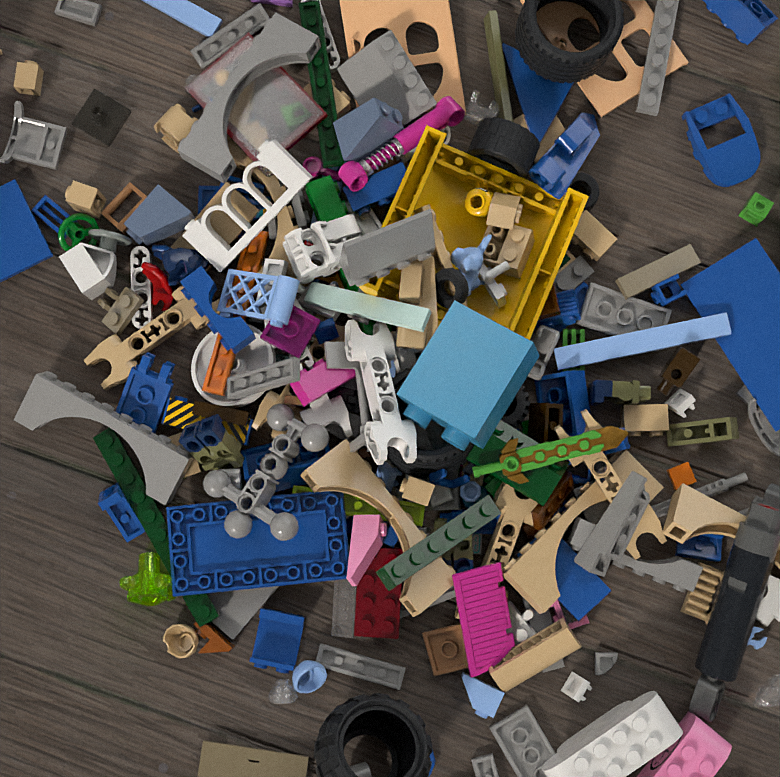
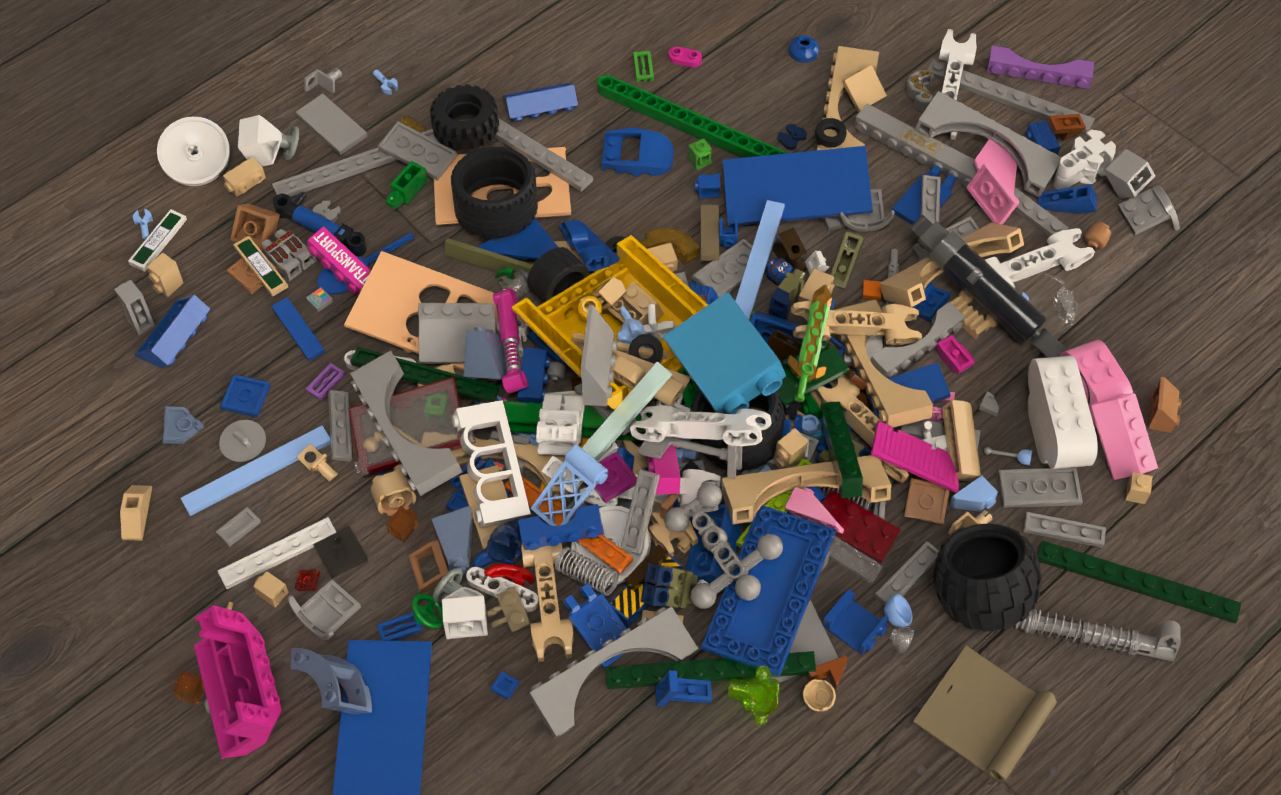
camera: 65 degrees left, 25 degrees down
(48, 344) = (505, 685): none -> blue tile
(56, 105) = (307, 580): none -> clear red tile
(71, 61) = (275, 553): none -> white tile
(85, 199) = (403, 588): tan brick -> none
(156, 157) = (402, 524): none -> clear orange brick
(176, 384) = (565, 566): none -> light grey piece
(177, 41) = (319, 464): none -> tan bracket
(449, 709) = (968, 520): none -> tan bracket
(490, 92) = (507, 271): none -> green tile
(556, 724) = (1023, 456): none -> hinge
(576, 687) = (1000, 429): white tile -> none
(615, 527) = (890, 332): light grey wedge -> none
(624, 230) = (683, 245): none -> clear yellow arch
(645, 601) = (954, 355): none -> dark pink slope
(649, 368) = (777, 269): none -> blue head
(718, 238) = (708, 186): none -> blue window

